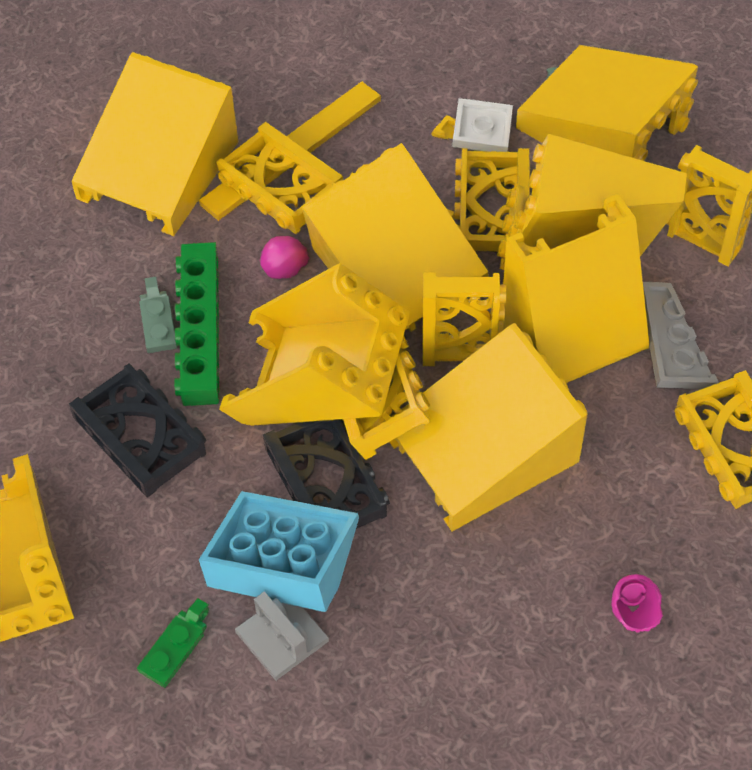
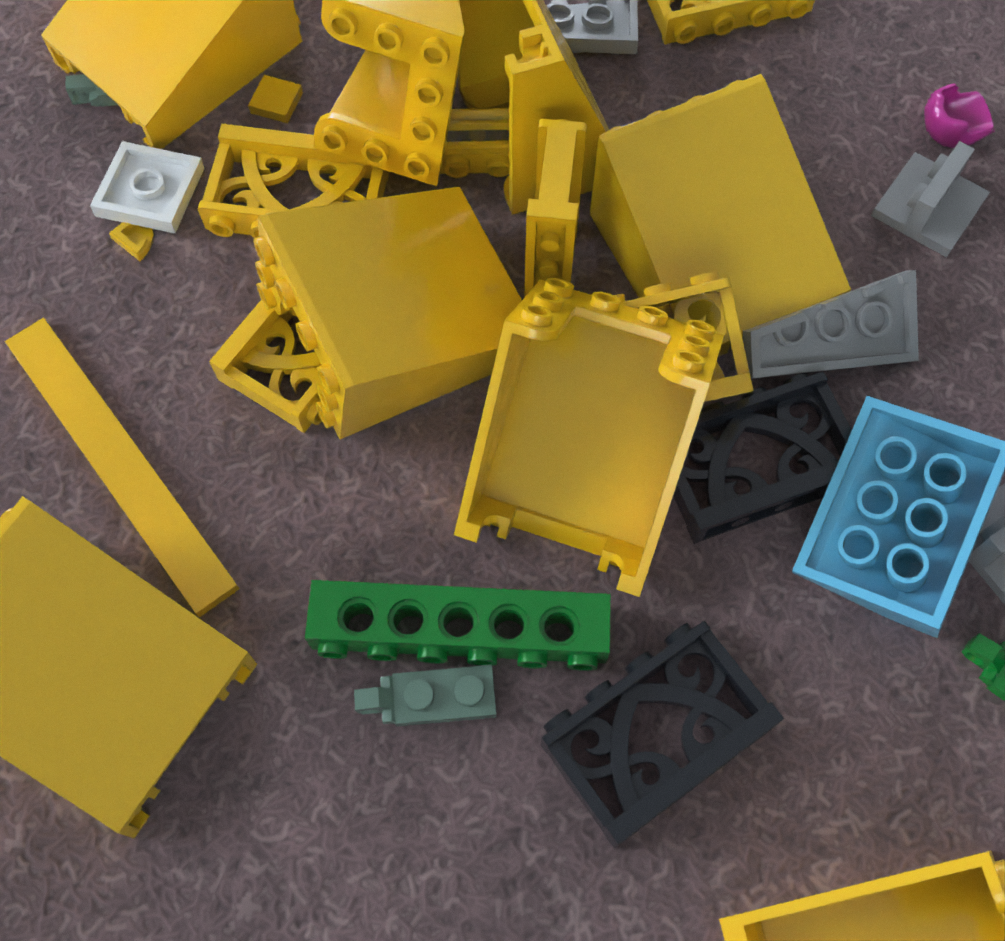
camera: 85 degrees left, 10 degrees up
(274, 200) = (159, 441): yellow fence -> none
(283, 257) = (343, 488): dark pink hair -> none
(423, 521) = (847, 331): none -> light grey wing
(555, 589) = (932, 200): none -> light grey bracket

